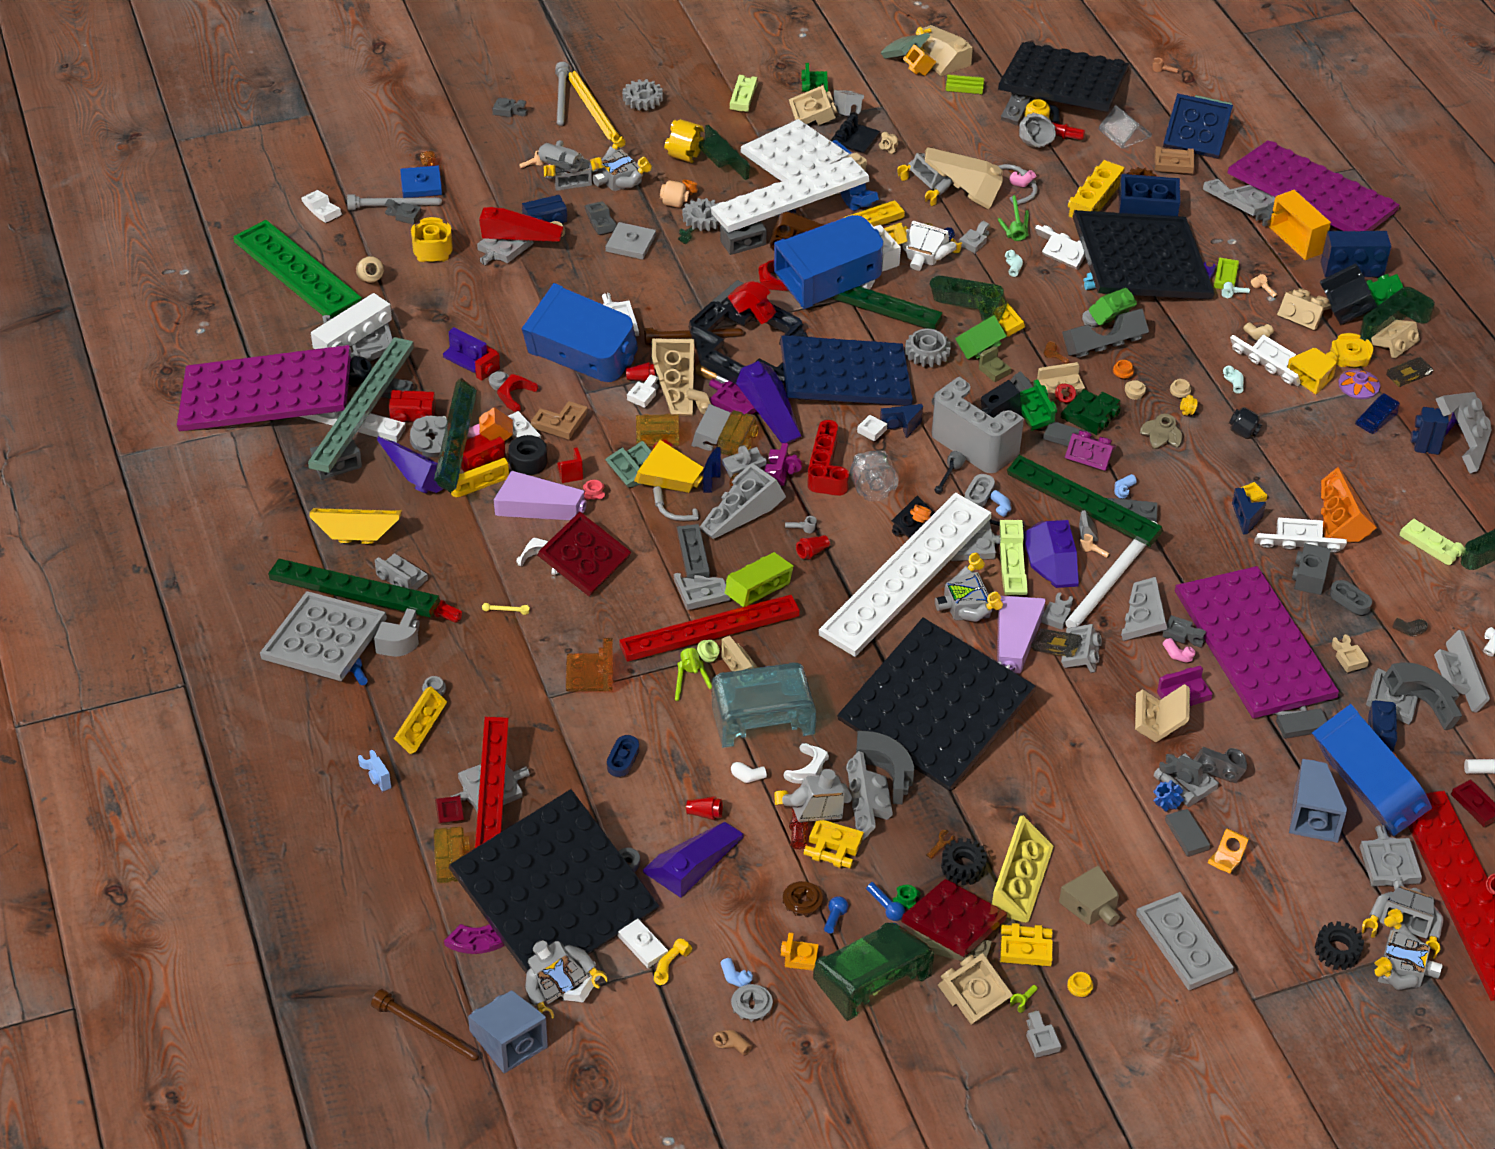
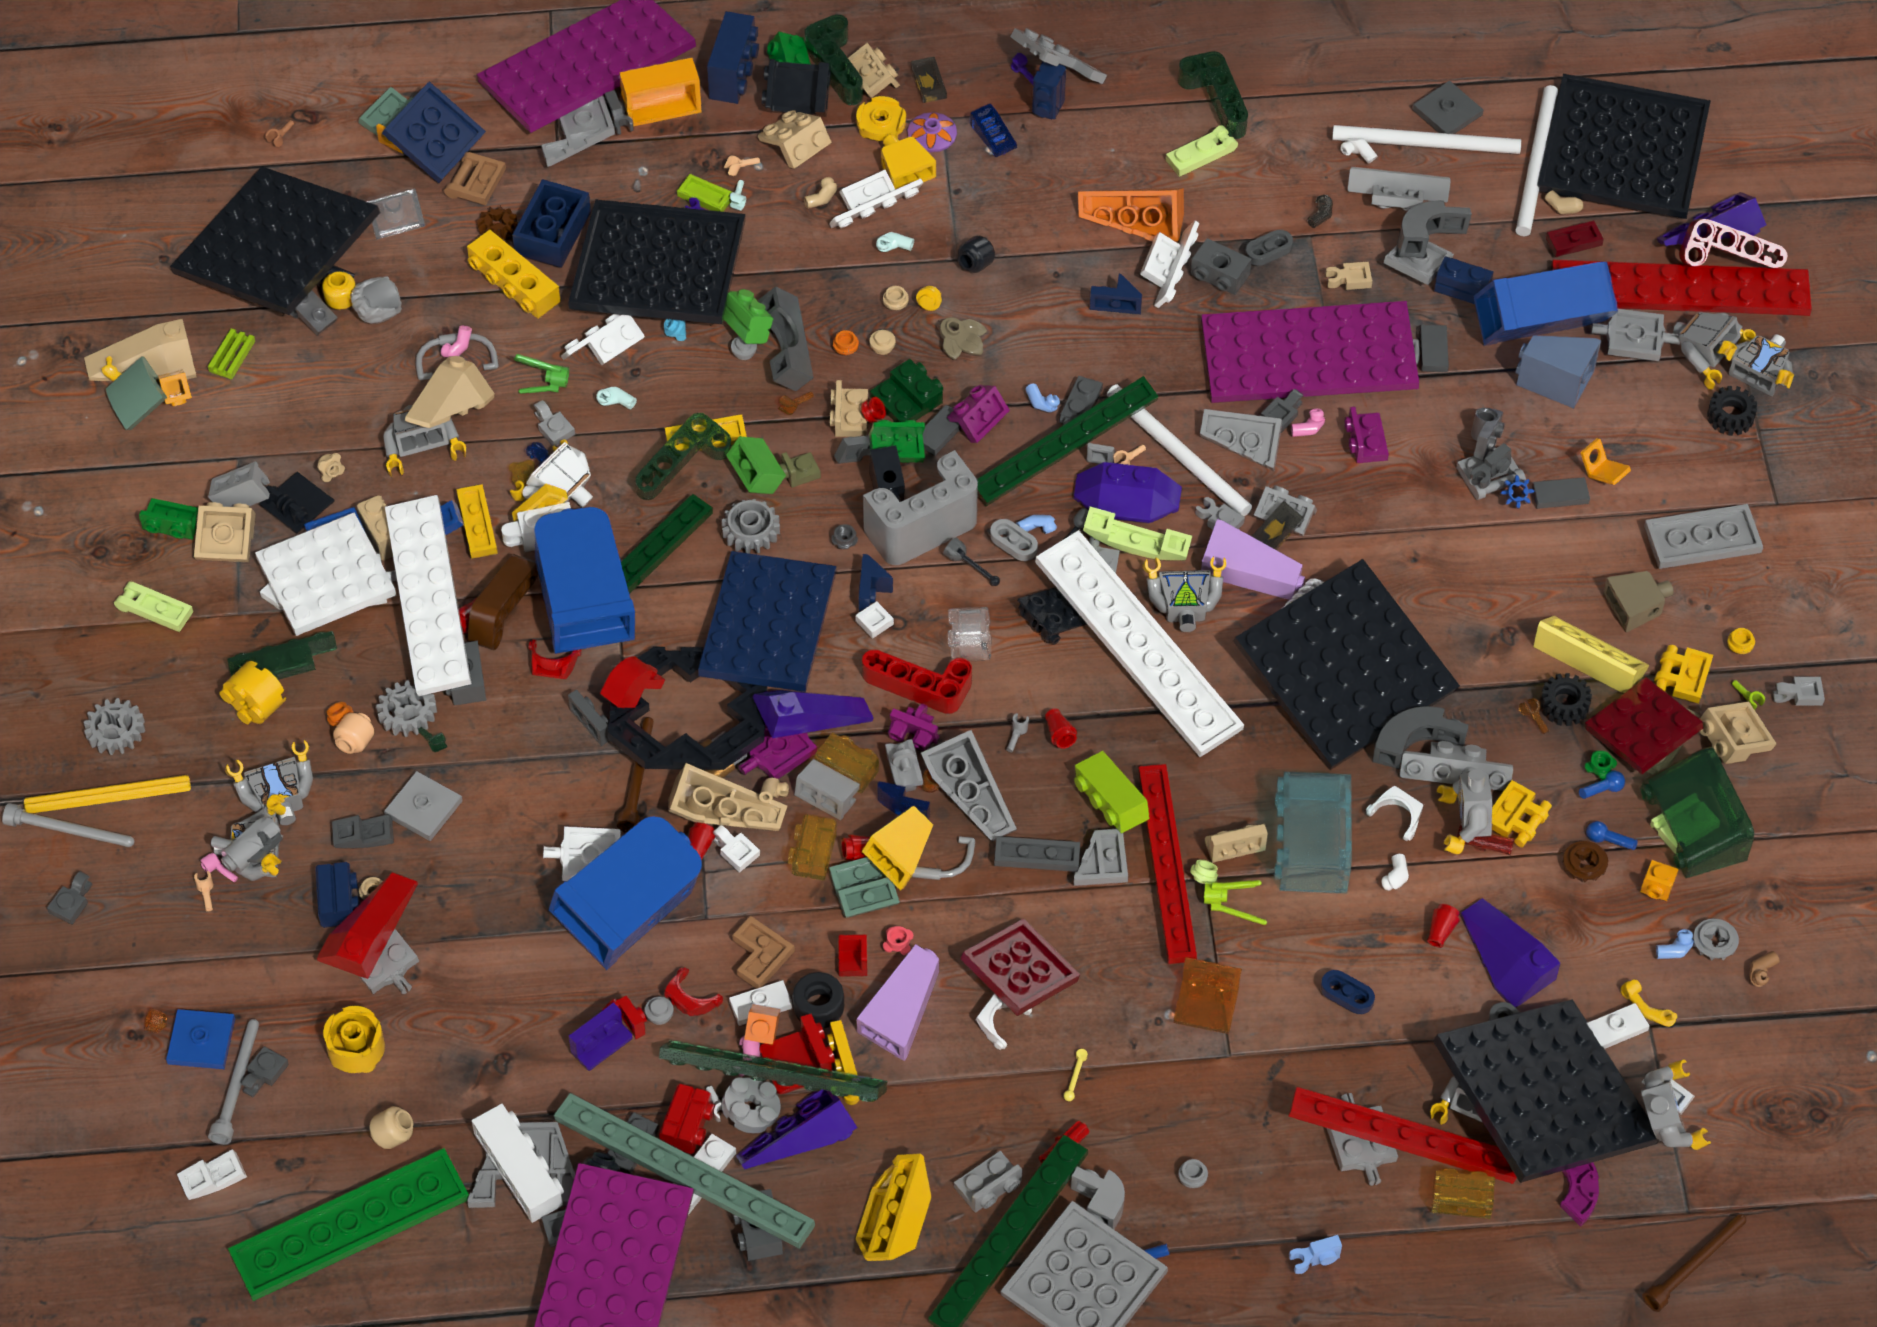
camera: 75 degrees left, 10 degrees up
(420, 720) = (1247, 1194): yellow plate -> none
(449, 809) = (1395, 1185): dark red plate -> none
(509, 1030) = (1724, 1172): sand blue slope -> none
(920, 513) = (1056, 600): orange plate -> none
(1066, 131) = (382, 267): red axle -> none
(1161, 717) = (1406, 458): tan bracket -> none
(1255, 492) = (1082, 284): yellow tile -> none

